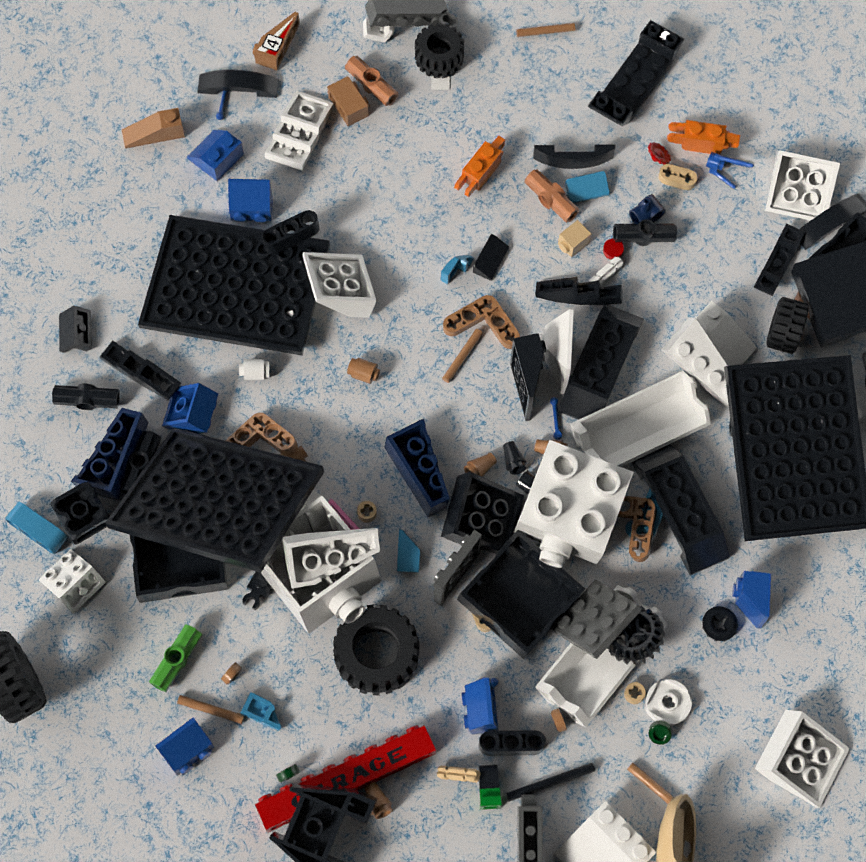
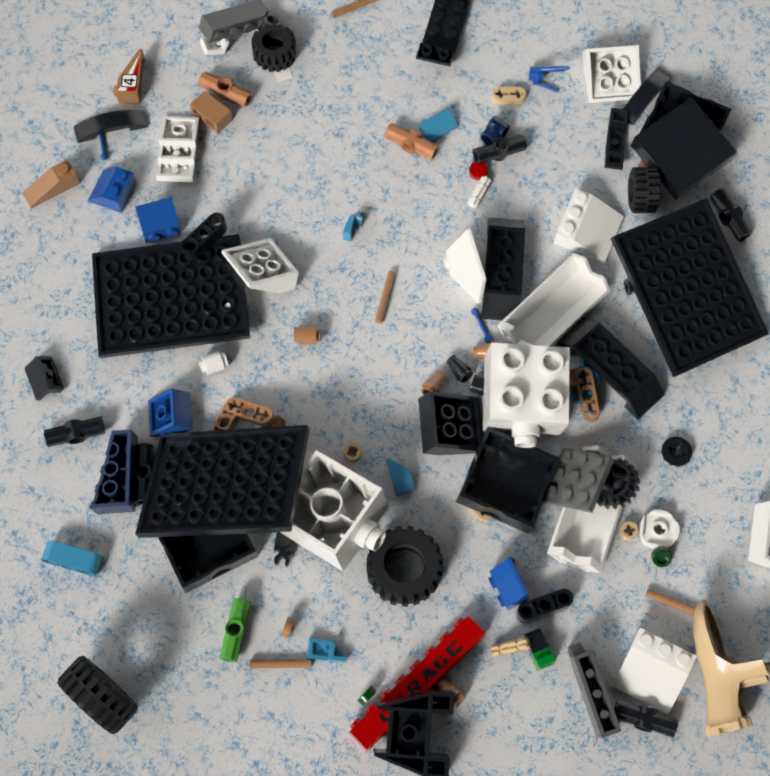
camera: 20 degrees left, 0 degrees up
(72, 580) = (120, 593): white bracket -> none
(80, 512) = (108, 532): black piece -> none
(140, 370) = (114, 394): black slope -> none
(185, 747) = (272, 703): blue slope -> none
(320, 554) = (336, 499): white wedge -> none
(419, 467) = (384, 401): dark blue wedge -> none
(457, 567) = (447, 474): dark grey plate -> none
(481, 166) = (344, 133): orange hinge -> none
(486, 314) = (393, 256): medium nougat beam -> none
(490, 257) = (379, 208): black slope -> none
(526, 365) = (446, 292): black slope -> none
(551, 781) = (587, 627): black bar -> none
(558, 720) = (575, 574): medium nougat tile -> none
(572, 292) = (458, 216): black slope -> none
(573, 160) = (397, 109): black slope -> none
(574, 238) = (443, 171): tan brick -> none
(659, 153) = (487, 81): red piece -> none
(699, 358) = (586, 239): white wedge -> none
(702, 136) = (518, 56): orange hinge -> none
(753, 596) = (697, 420): blue slope -> none

